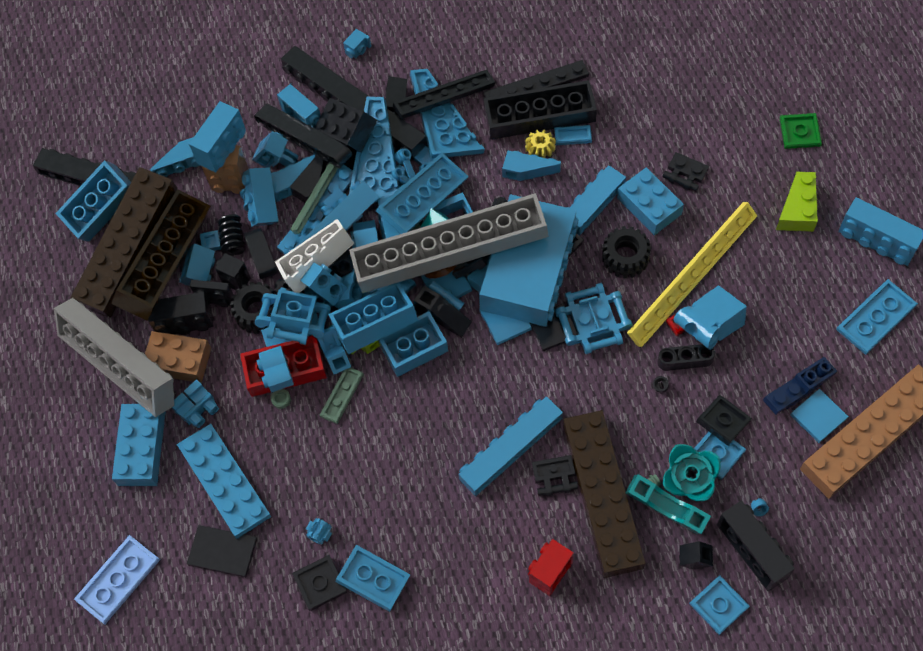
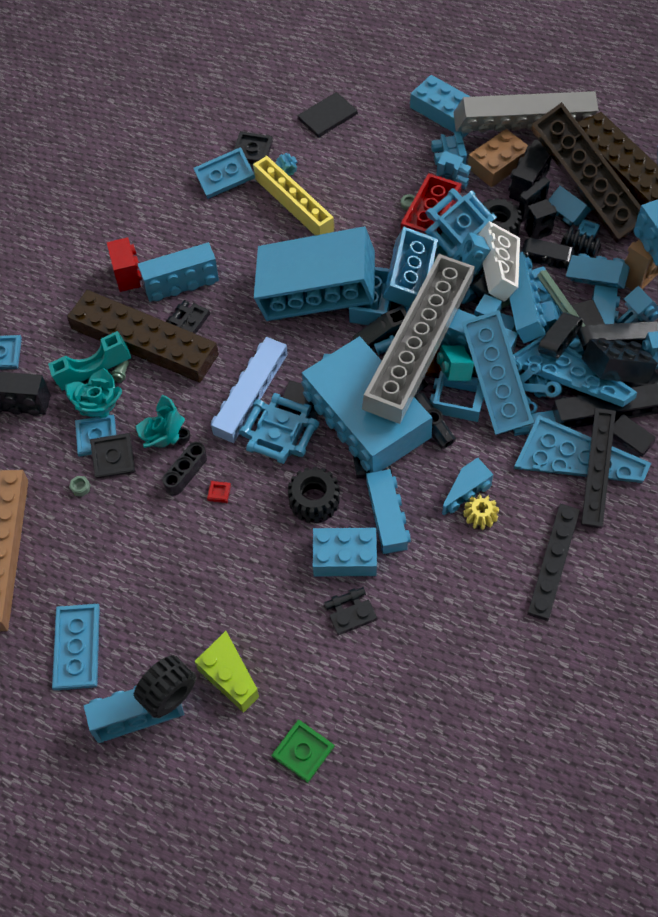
camera: 125 degrees right, 5 degrees down
(117, 579) = (362, 57): light blue tile -> none
(223, 481) = (376, 138): dark azure plate -> none
(225, 378) = (452, 168): none -> dark azure hips
(275, 369) = (424, 189): dark azure brick -> none
(341, 395) = (379, 239): sand green tile -> none
(346, 176) = (560, 335): none -> black beam
(355, 490) = (293, 197): none -> light yellow brick
(436, 386) = (315, 274): none -> dark azure brick
(510, 445) = (234, 307): dark azure brick -> none
(519, 511) = (179, 272): none -> dark azure brick
(540, 109) = (516, 534): black brick -> none
(573, 135) = (471, 550): dark azure tile -> none
(577, 368) = (250, 387): none -> light blue brick
(677, 409) = (163, 428): none -> teal brick
(692, 274) = (249, 538): light yellow plate -> none
(696, 555) = (40, 355): black brick -> none
(712, 317) = (192, 503): dark azure piece -> none
(757, 503) = (32, 428): dark azure hinge -> none
(769, 422) = (79, 486): none -> sand green tile
(800, 386) = (81, 528): dark blue slope -> none
(819, 415) = (48, 527): dark azure tile -> none
(863, 193) = (164, 686): none -> black tyre

